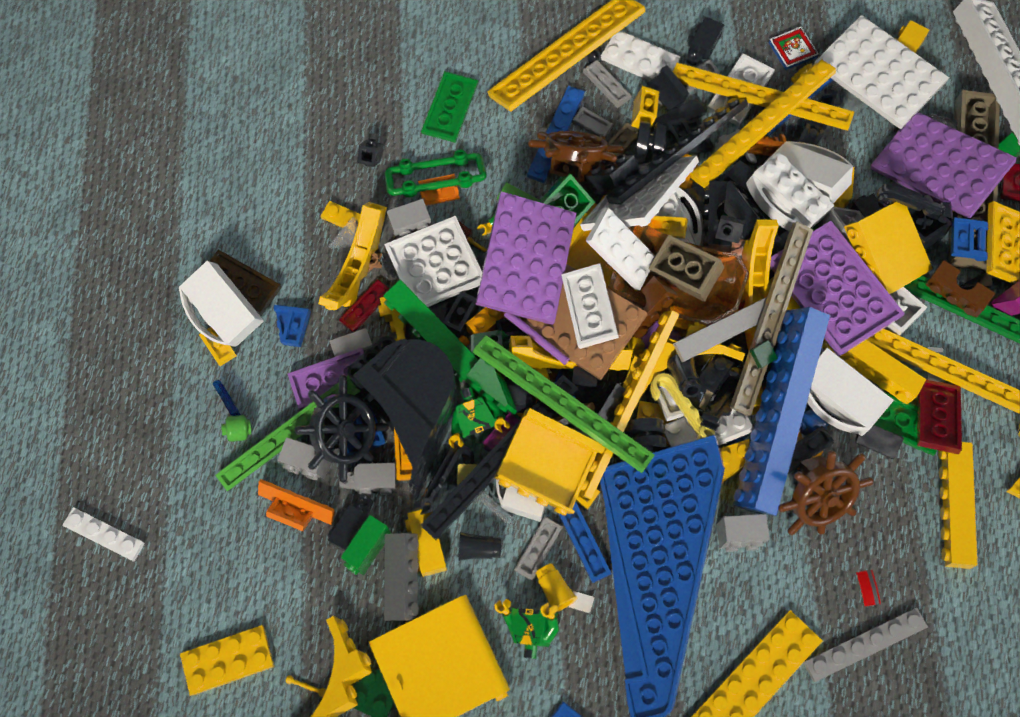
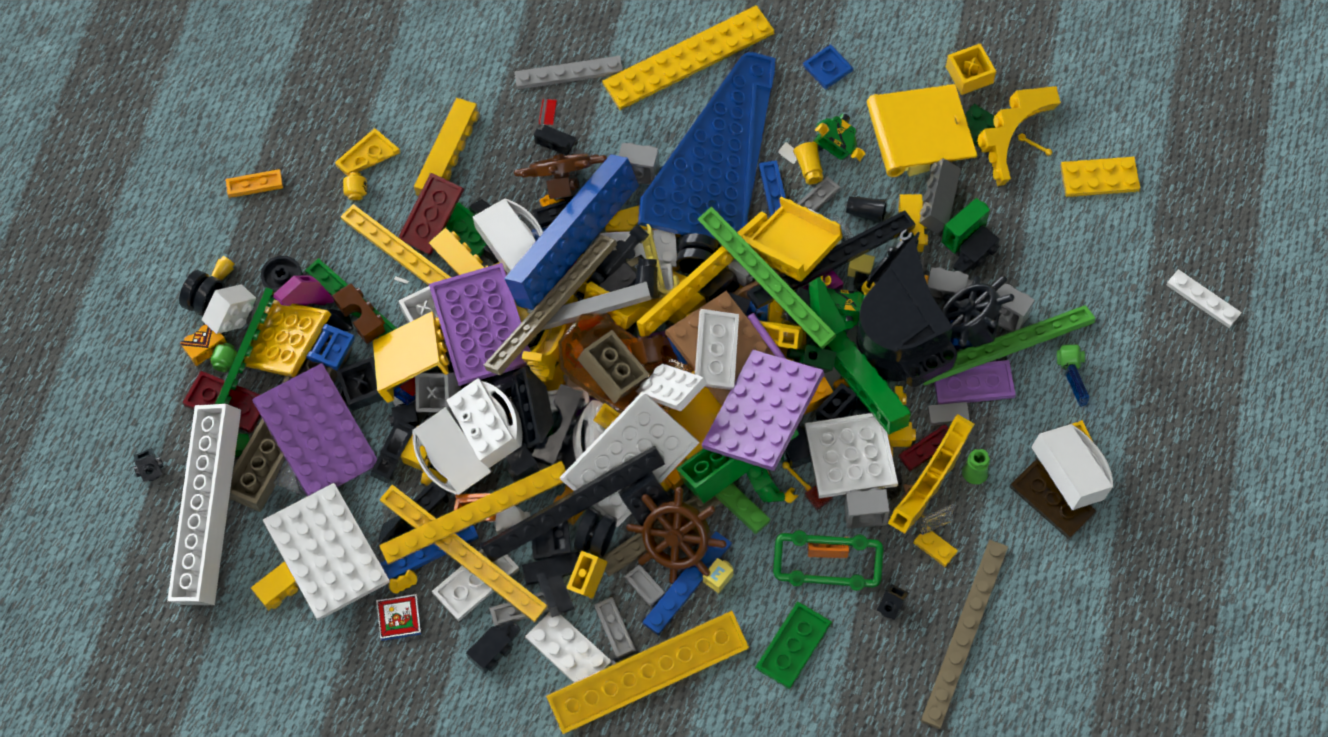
camera: 165 degrees left, 5 degrees down
(292, 324) = (1004, 444): blue wing -> none
(293, 508) = (1029, 275): orange bracket -> none
(302, 153) = (964, 634): none -> dark tan plate
(312, 290) = (976, 467): none -> bright green plant
(528, 134) = (719, 576): none -> light yellow brick
(736, 226) = (559, 390): black brick -> none
(763, 354) = (573, 271): tile -> none
(846, 550) = (554, 139): none -> black panel
(863, 172) = (392, 450): none -> black slope
(914, 200) = (369, 385): black piece -> none

